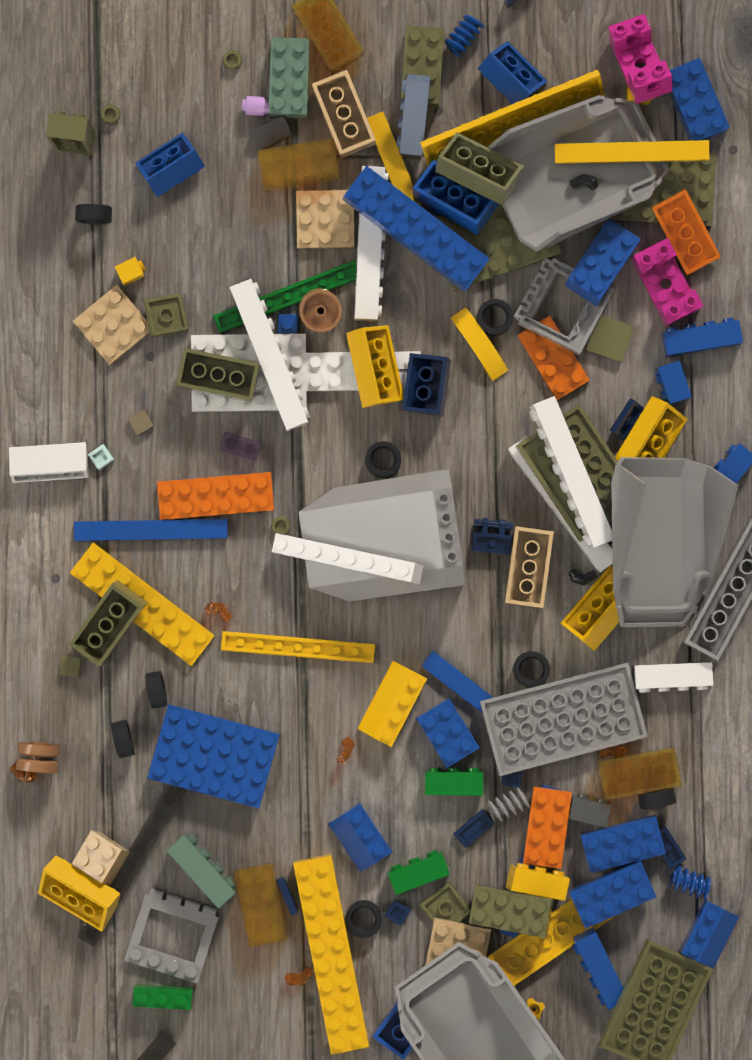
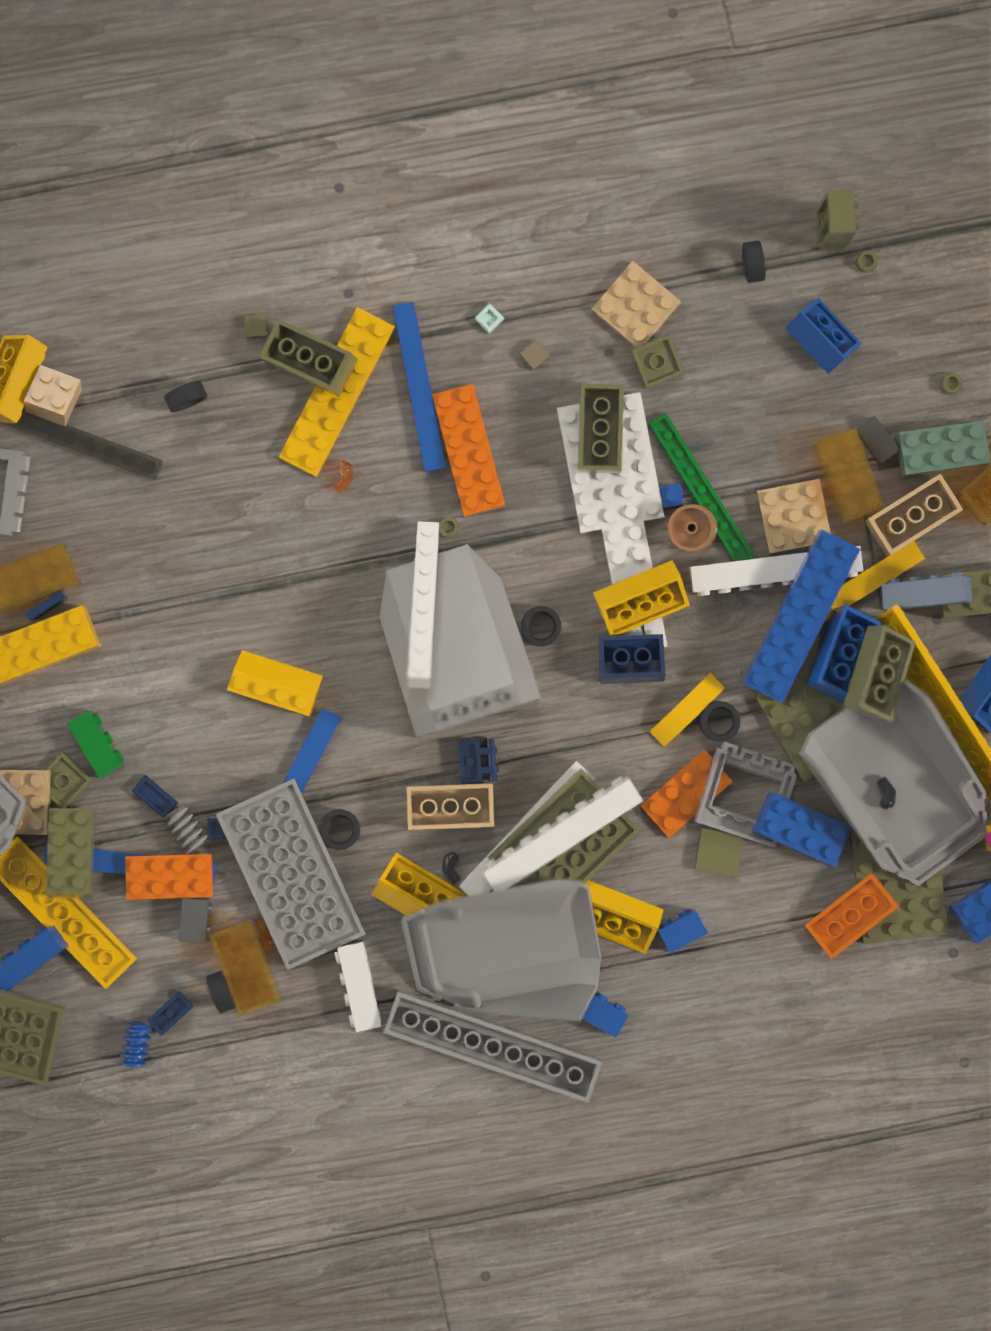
camera: 80 degrees right, 0 degrees up
(23, 776) = (127, 296): clear orange arm -> none
(38, 755) = (149, 309): medium nougat wheel -> none
(48, 462) = (472, 262): white brick -> none
(130, 271) = (698, 313): yellow brick -> none
(156, 689) = (245, 423): black tyre -> none
(202, 869) = (58, 508): sand green brick -> none
(213, 756) = (184, 498): blue plate -> none
(240, 446) = (527, 467): clear purple plate -> none
(255, 106) = (905, 417): lavender brick -> none
(269, 355) = (633, 480): white brick -> none
(297, 647) = (319, 569): yellow tile -> none
(346, 752) = (212, 642): clear orange arm -> none
(360, 837) = (124, 674): blue slope -> none
(363, 933) = (19, 689): black tyre -> none
(397, 912) = (49, 729): dark blue plate -> none
(447, 732) = (253, 749): blue brick -> none
(454, 782) = (201, 765): green brick -> none
(537, 881) = (107, 876): yellow brick -> none
(612, 893) = (108, 960): blue brick -> none
(623, 843) = (165, 963): blue brick -> none
(627, 419) = (632, 886): dark blue plate -> none
(632, 152) = (929, 840): yellow tile -> none
(659, 264) = (809, 889): dark pink plate -> none
(702, 338) = (738, 954): blue brick -> none
(708, 934) = (83, 1074): blue slope -> none

